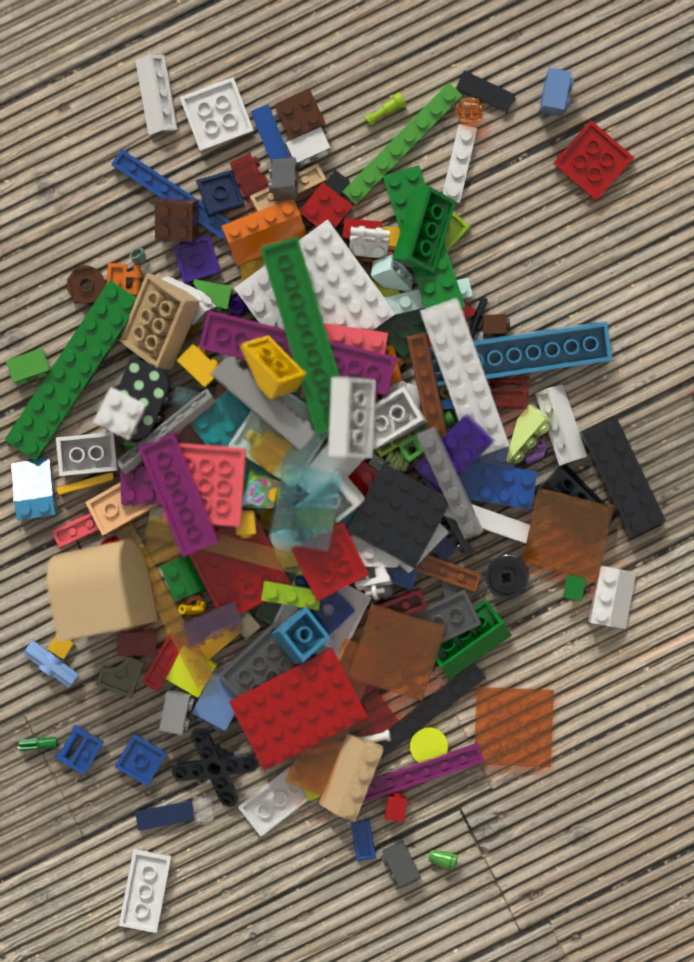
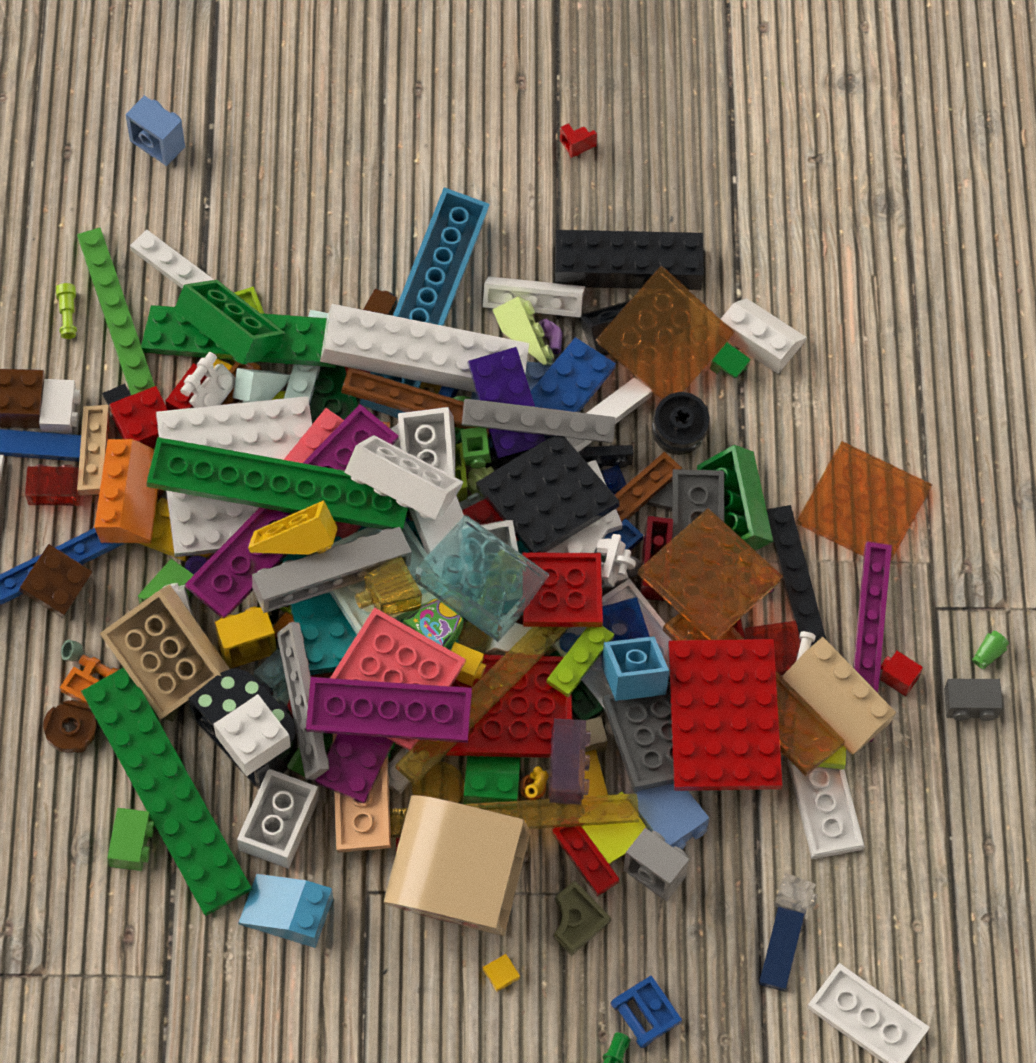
camera: 70 degrees left, 25 degrees down
(51, 664) = (518, 993): light blue piece -> none
(75, 530) = (364, 883): coral tile -> none
(86, 483) = (314, 840): yellow tile -> none
(137, 643) = (545, 875): clear red brick -> none
(140, 759) = (696, 942): blue plate -> none
(196, 259) = (114, 587): dark purple plate -> none
(215, 764) = (757, 852): black piece -> none
(220, 193) = (53, 525): dark blue tile -> none
(284, 179) = (81, 439): dark grey brick -> none
(363, 840) = (923, 731): blue tile -> none
(428, 744) = (839, 605): neon yellow tile -> none
(469, 110) = (121, 225): clear orange head -> none
(485, 91) = (111, 204): black tile -> none
(510, 397) = (477, 319): clear red plate -> none
(593, 160) = (254, 133): red plate -> none

